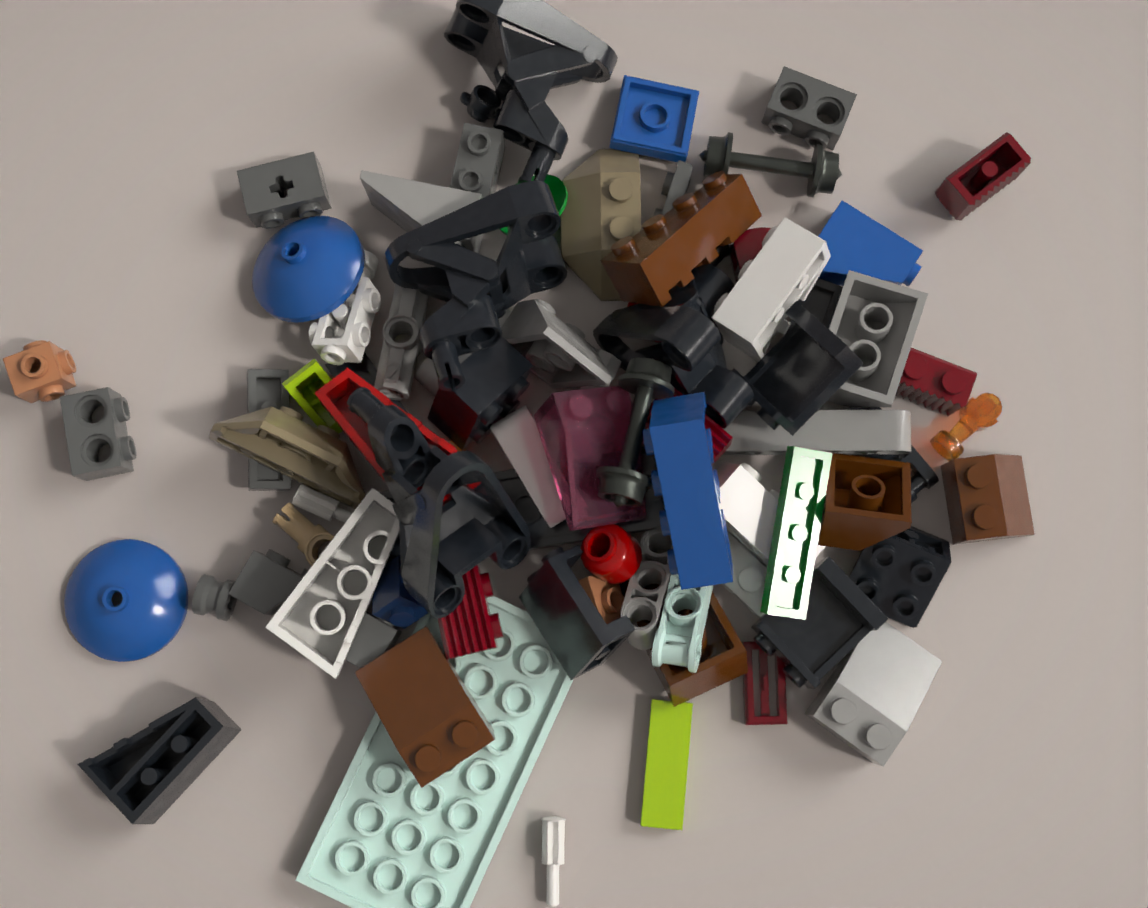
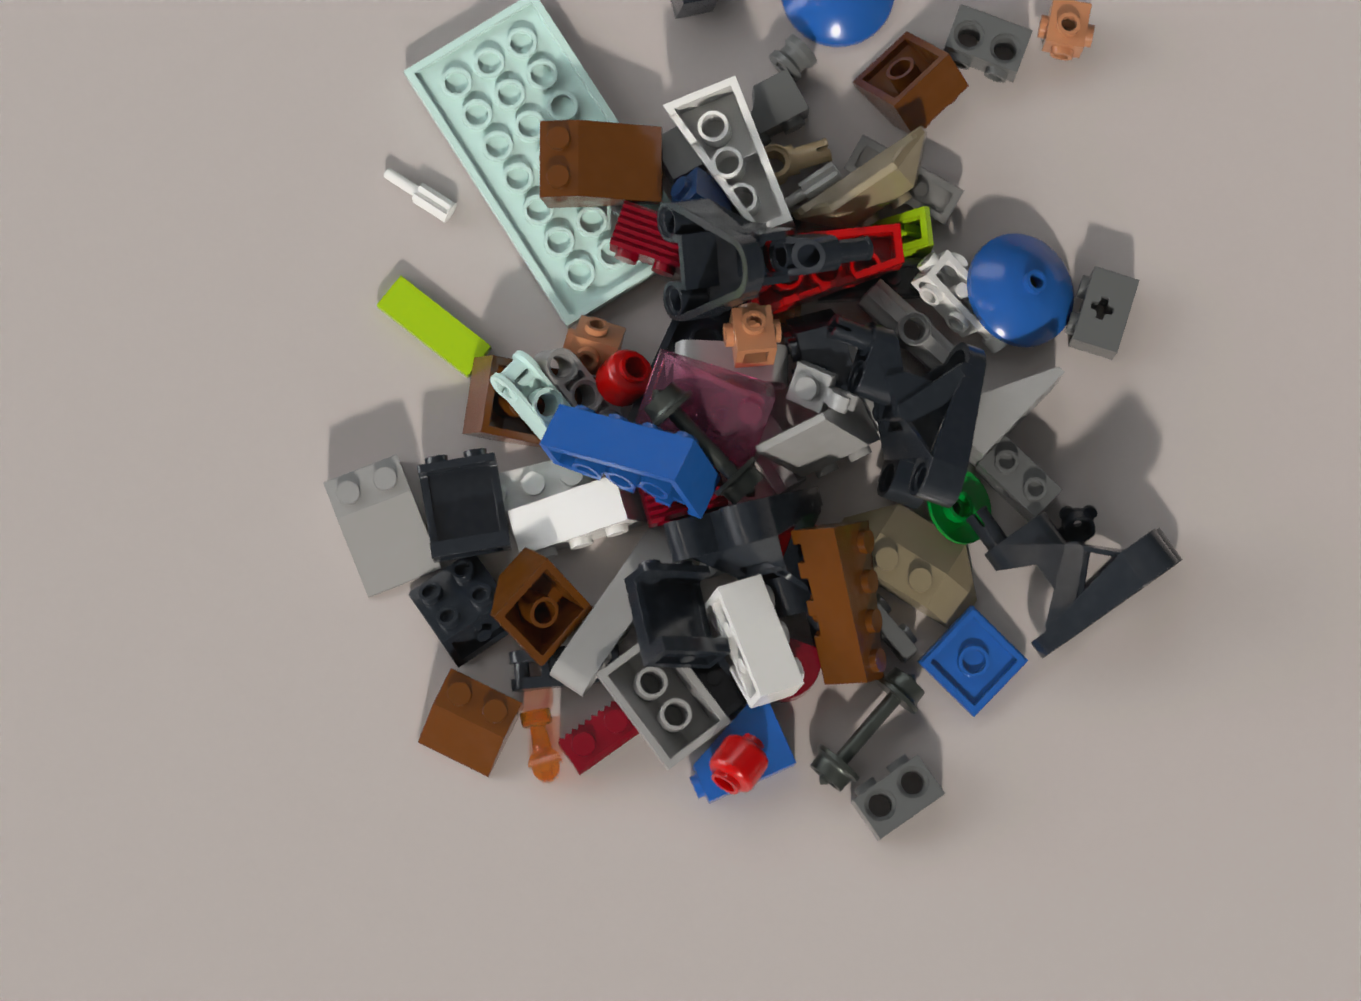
camera: 120 degrees right, 0 degrees up
(174, 478) = (911, 82): none -> reddish brown slope
(507, 451) = (752, 335): none -> nougat brick
(518, 367) = (816, 390): none -> light grey plate
(569, 617) = (596, 312): black panel -> none
(748, 691) = (417, 427): dark red tile -> none
(796, 532) = (546, 530): plate -> none
(881, 239) = (738, 763): none -> red head
(983, 176) = (741, 899): dark red brick -> none

